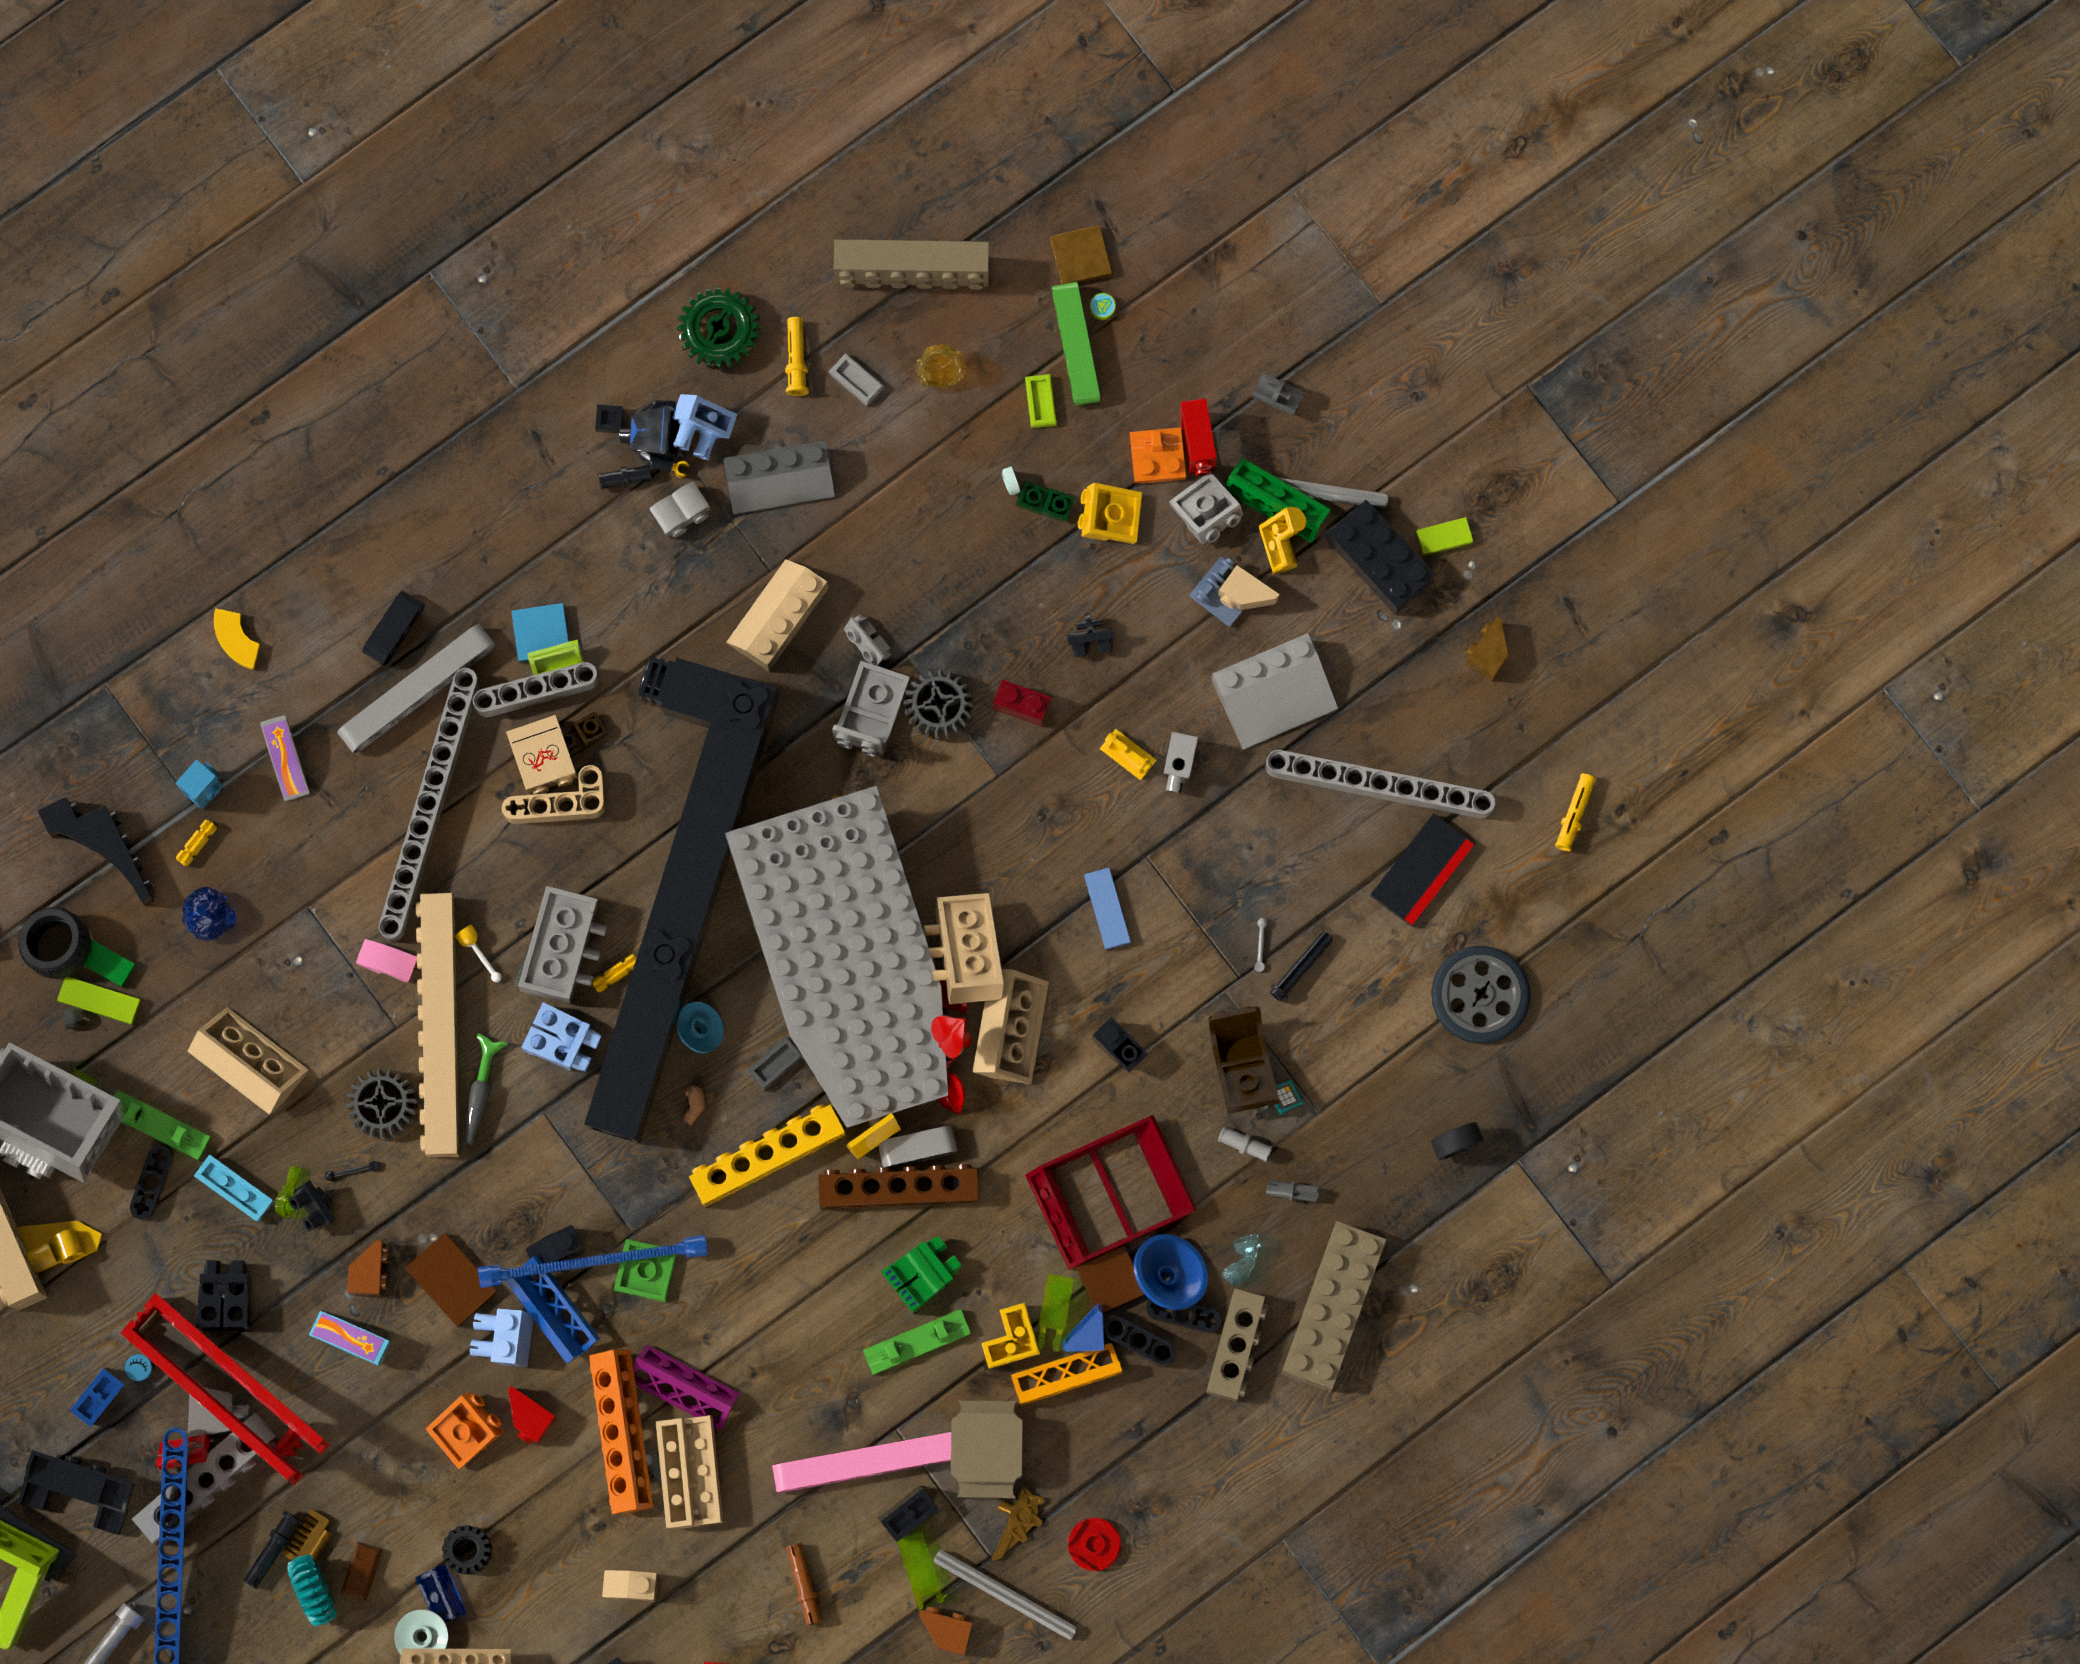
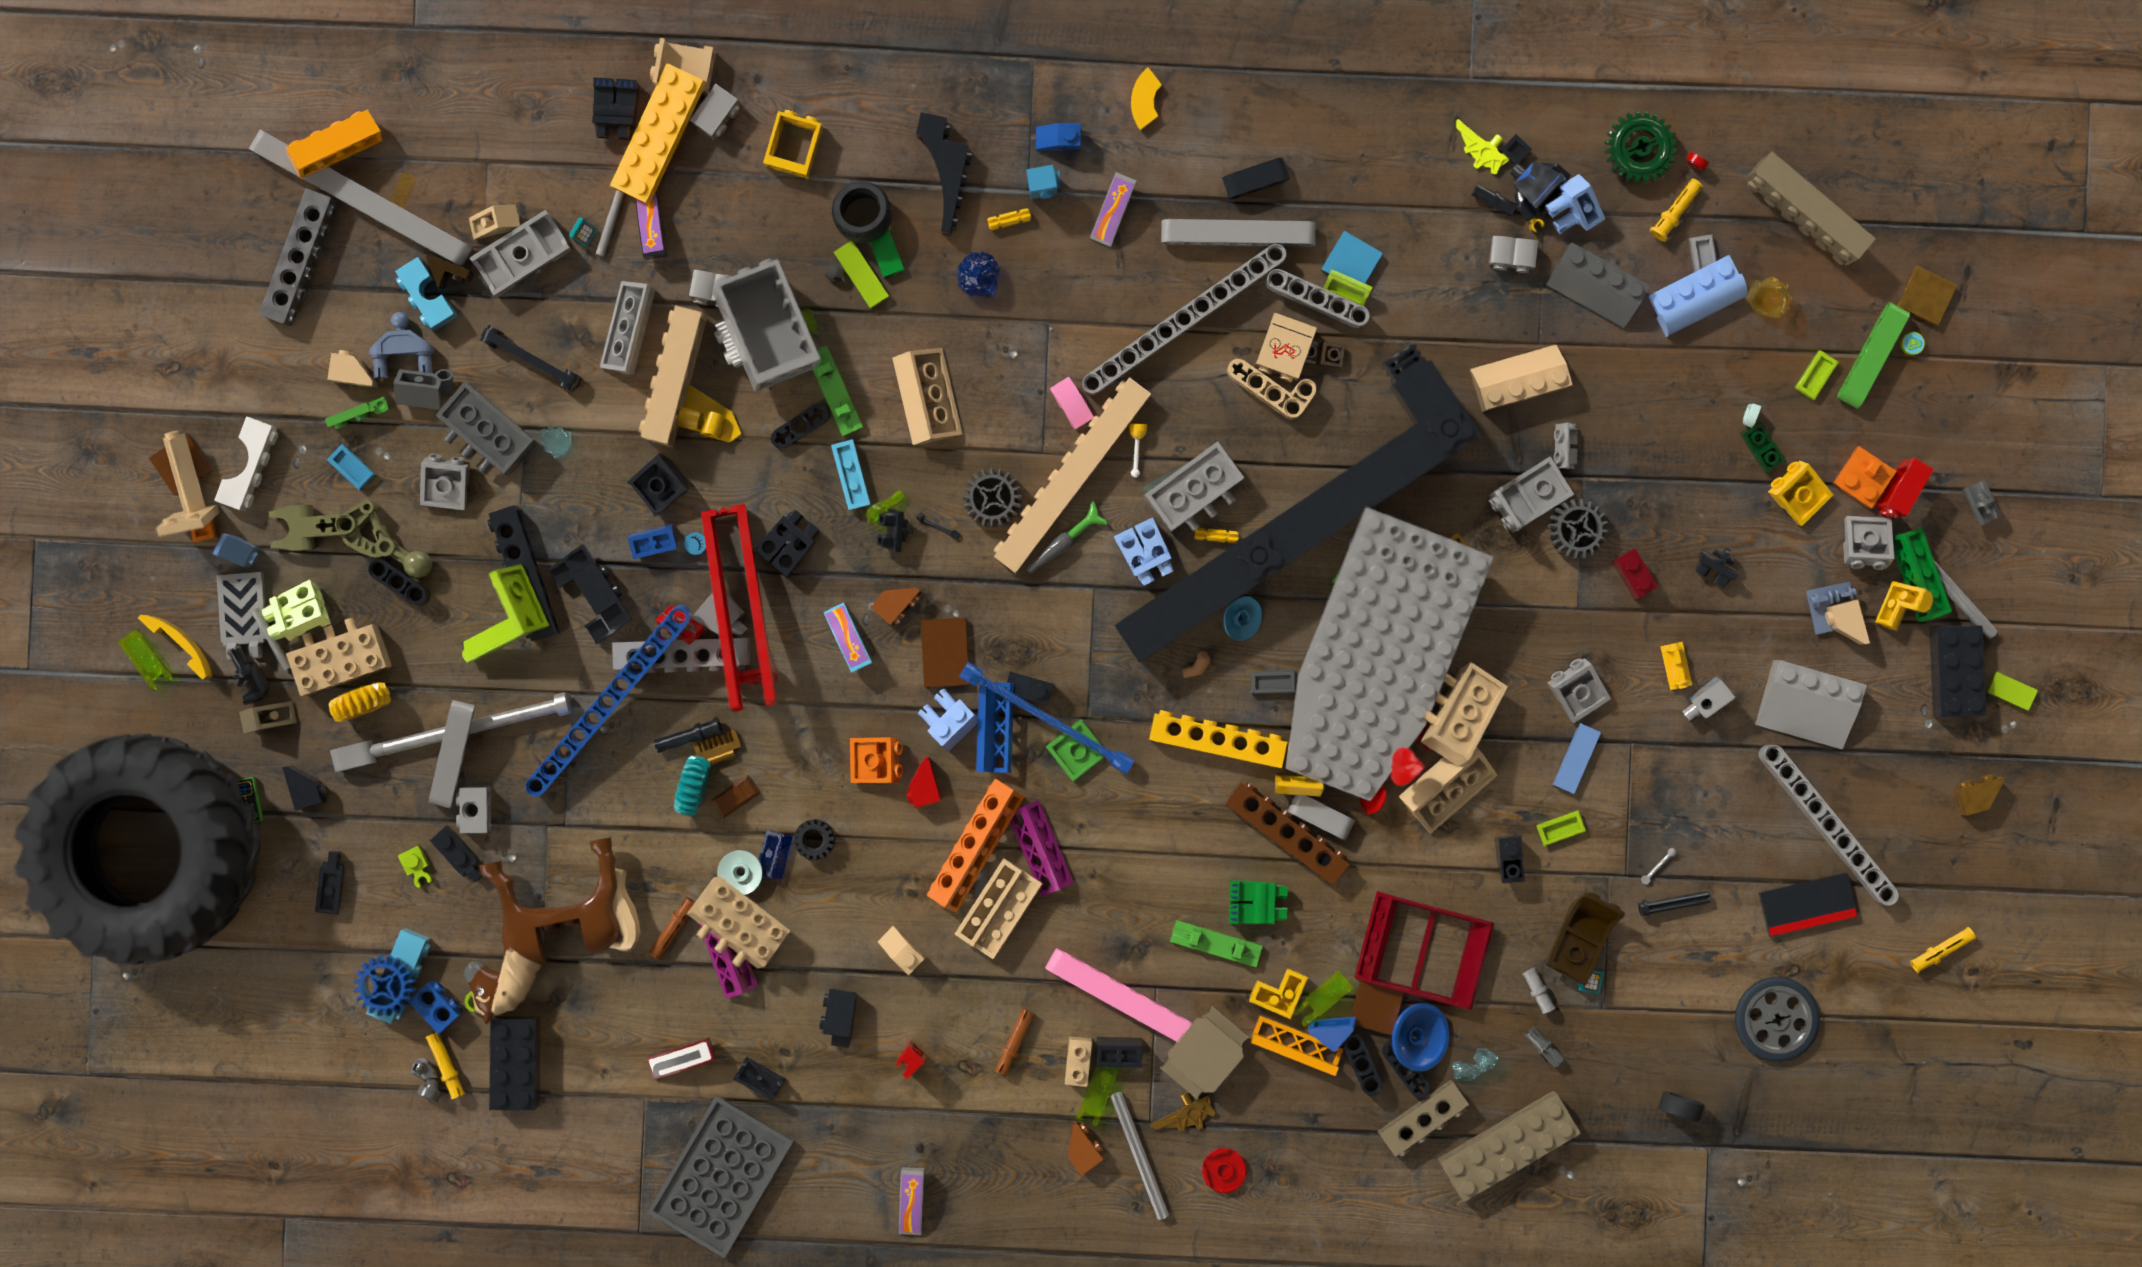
camera: 40 degrees right, 10 degrees up
(60, 1339) = (659, 483): none -> black slope
(183, 733) = (1059, 137): none -> blue slope
(579, 443) = (1483, 152): none -> neon yellow piece
(779, 300) = (1697, 161): none -> red tile
(876, 1552) = (1078, 1061): none -> tan brick
(877, 415) = (1698, 295): none -> light blue brick
(1057, 845) = (1578, 689): none -> light grey plate
(1144, 982) = (1561, 828): none -> lime tile

